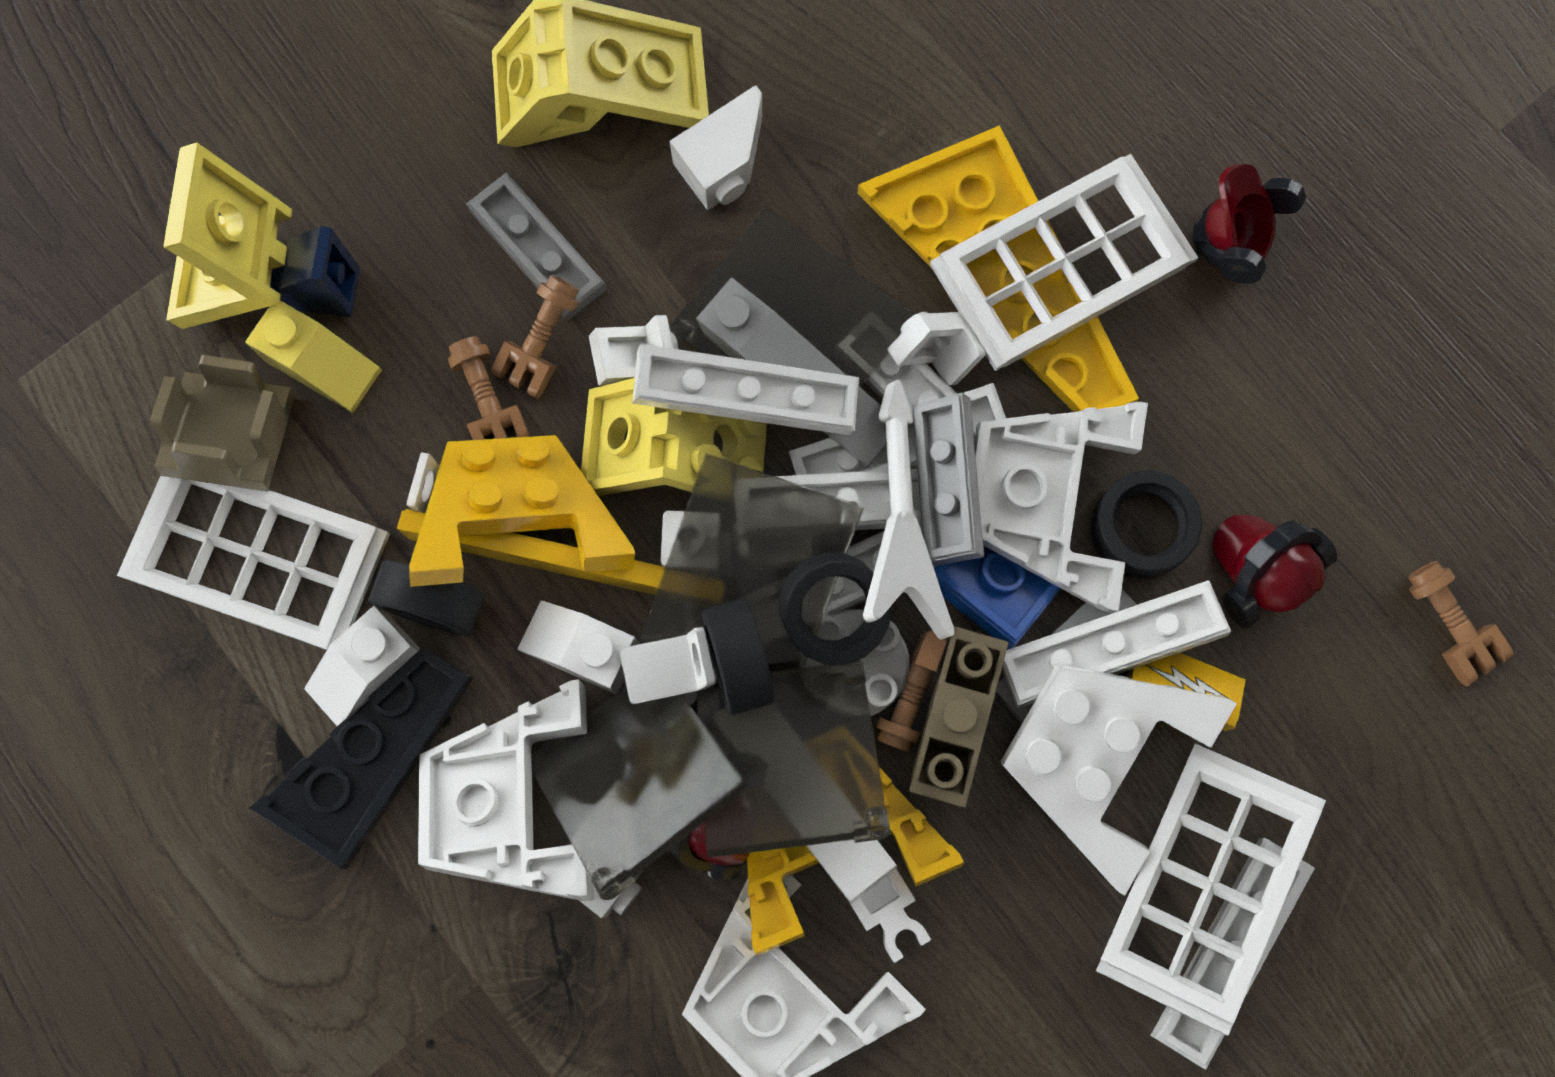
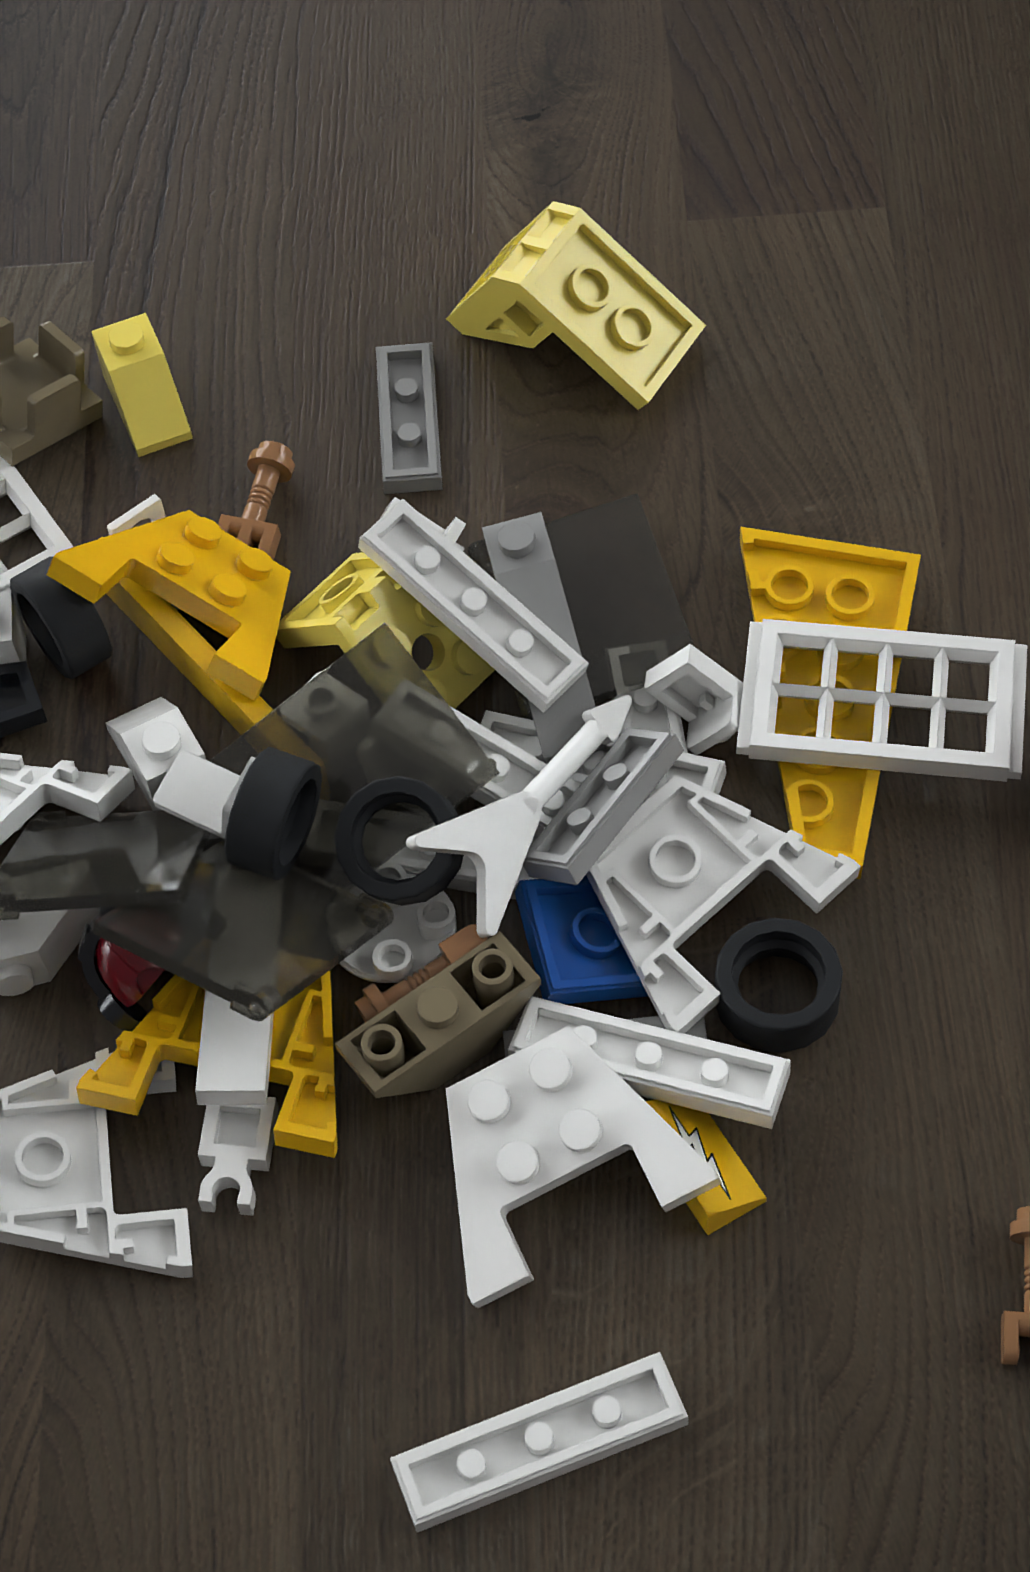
camera: 40 degrees right, 20 degrees down
(226, 258) = (132, 260): light yellow bracket -> none
(317, 274) = (200, 324): dark blue slope -> none
(558, 296) = (313, 500): medium nougat hinge -> none
(721, 150) = (642, 429): white slope -> none
(1167, 985) = (442, 1413): white piece -> none
(1270, 565) = (877, 1098): cap -> none

